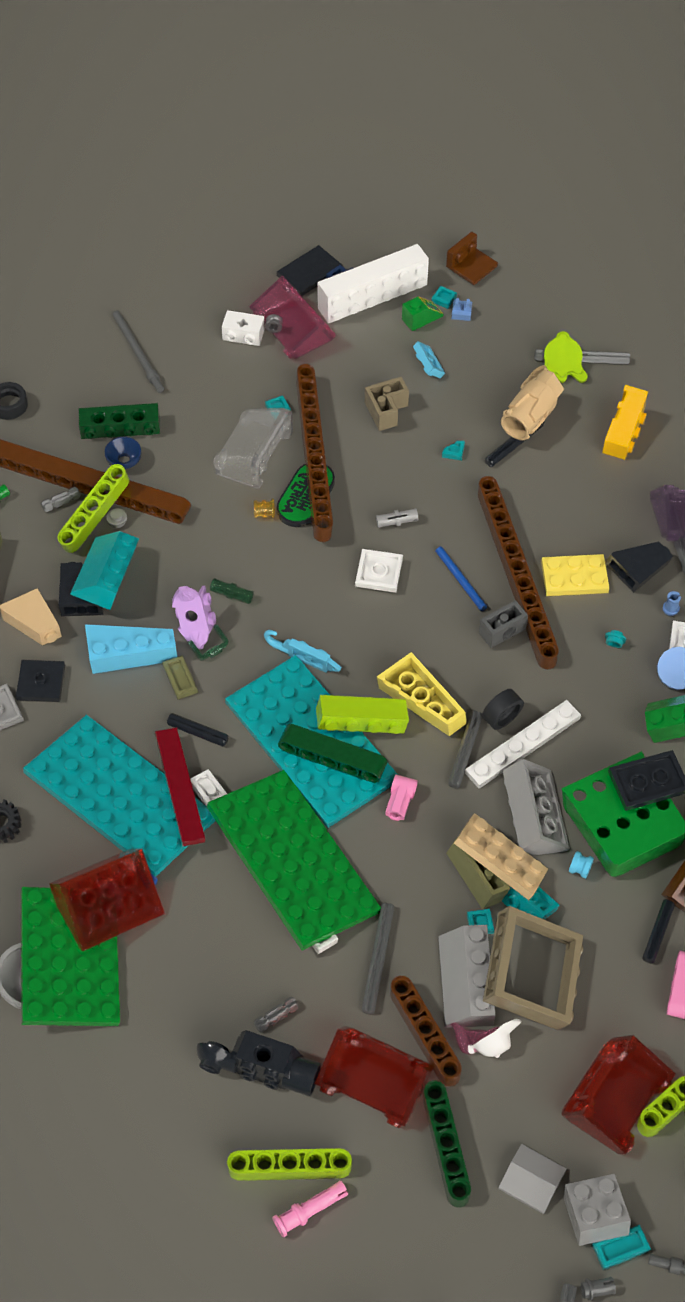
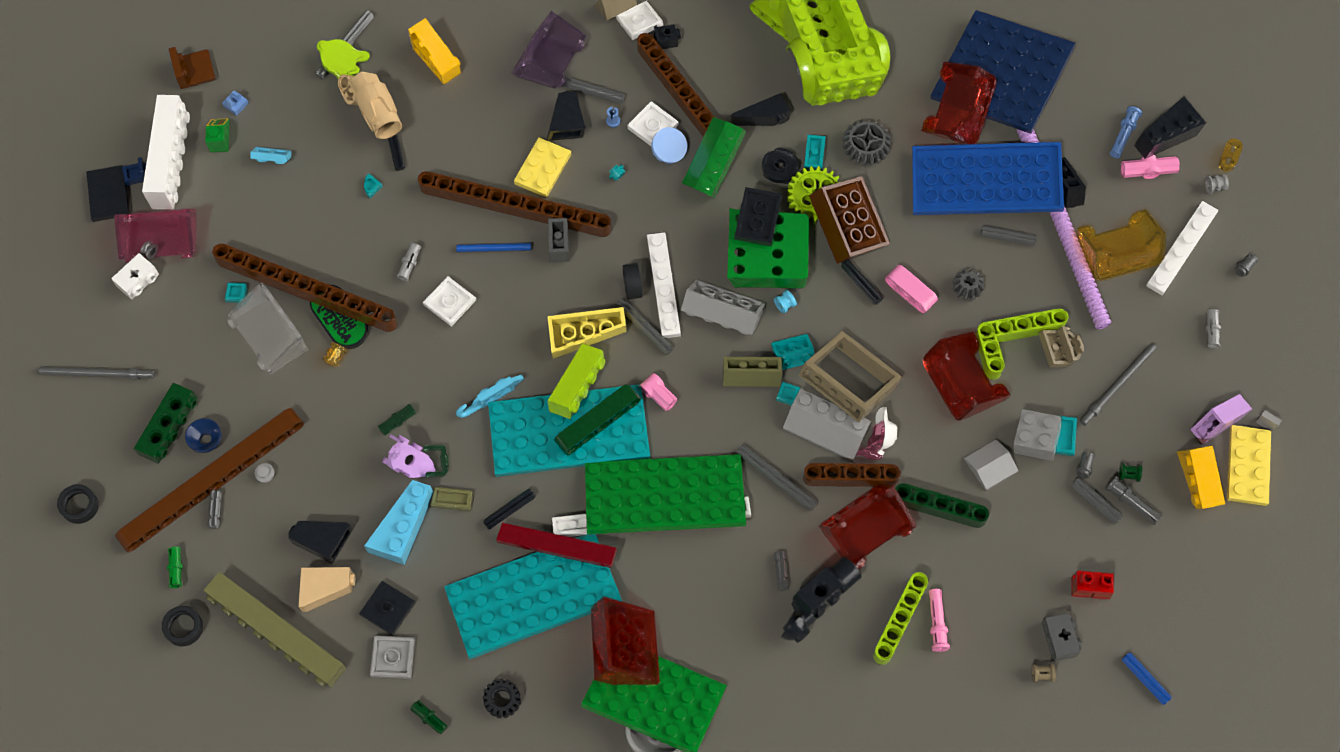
camera: 60 degrees left, 10 degrees up
(93, 499) = (243, 477): lime beam -> none
(105, 568) = (318, 503): teal slope -> none
(385, 400) = (291, 210): dark tan brick -> none
(444, 297) = (212, 108): teal tile -> none
(501, 856) = (752, 349): tan plate -> none

